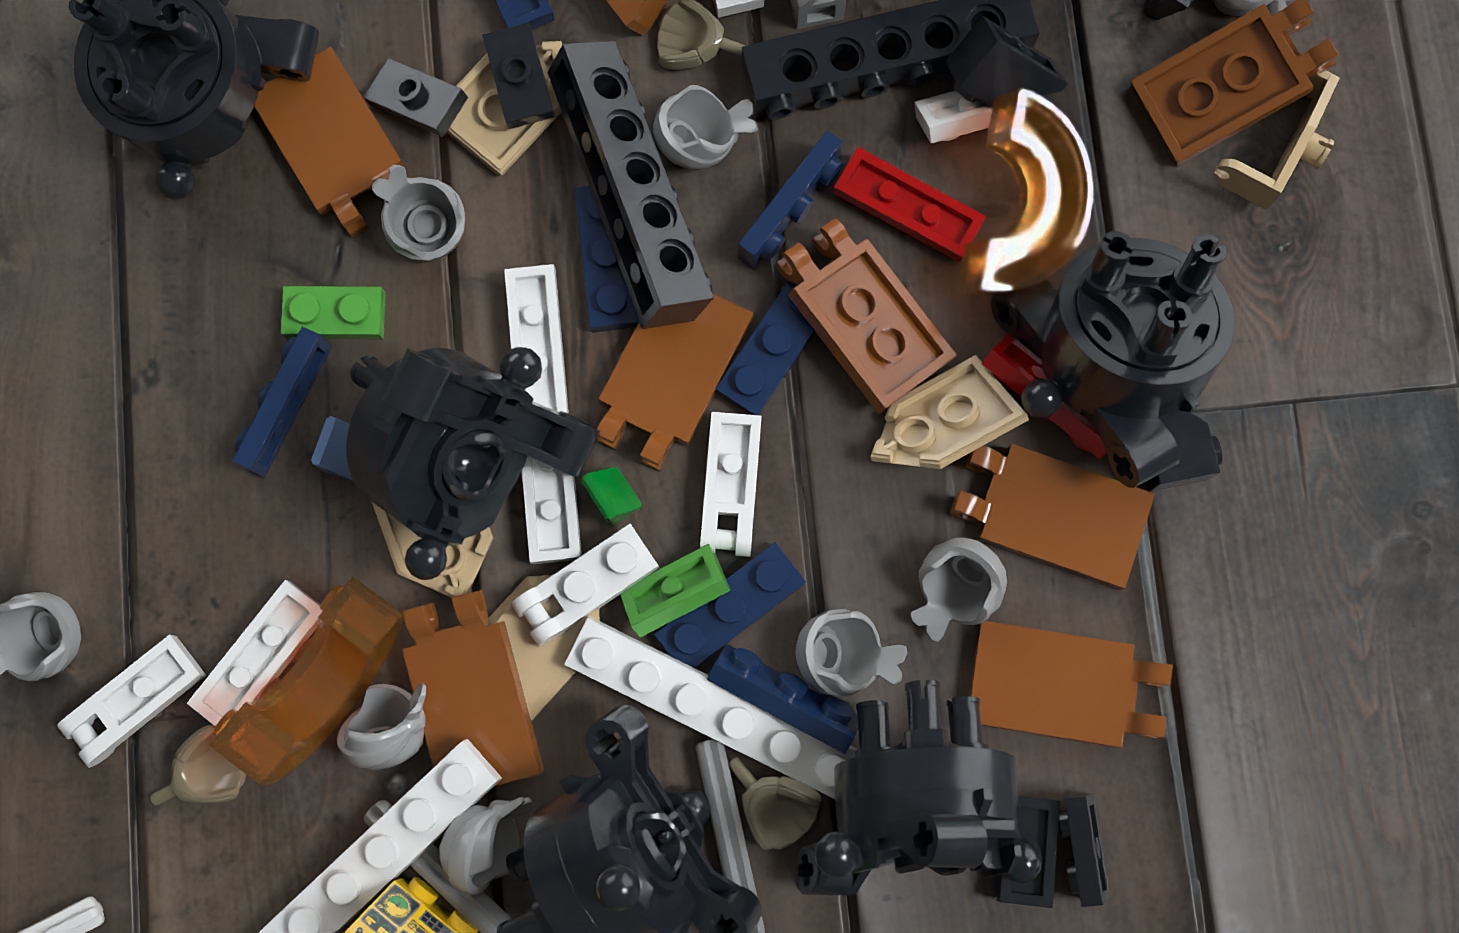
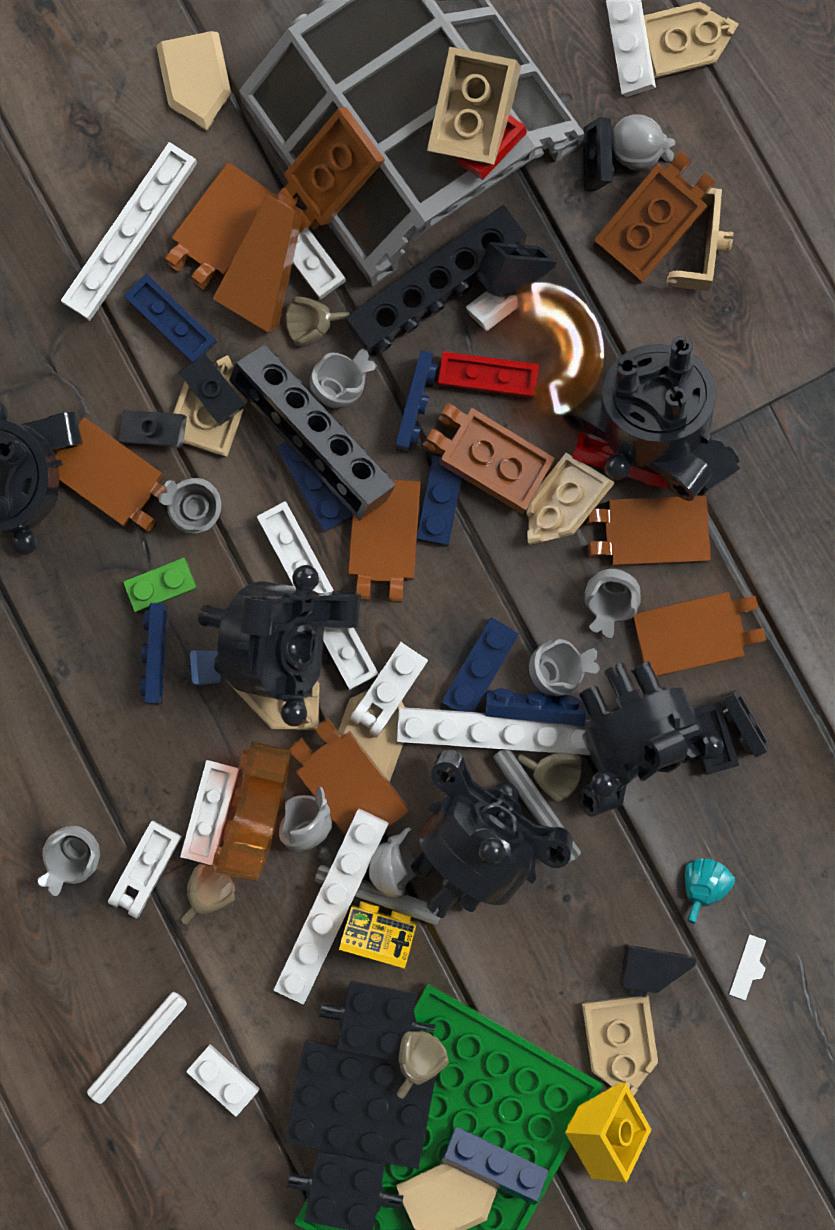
camera: 25 degrees left, 5 degrees up
(611, 494) = (380, 628): green slope -> none
(674, 590) = (443, 671): bright green plate -> none
(731, 480) = (449, 591): white plate -> none

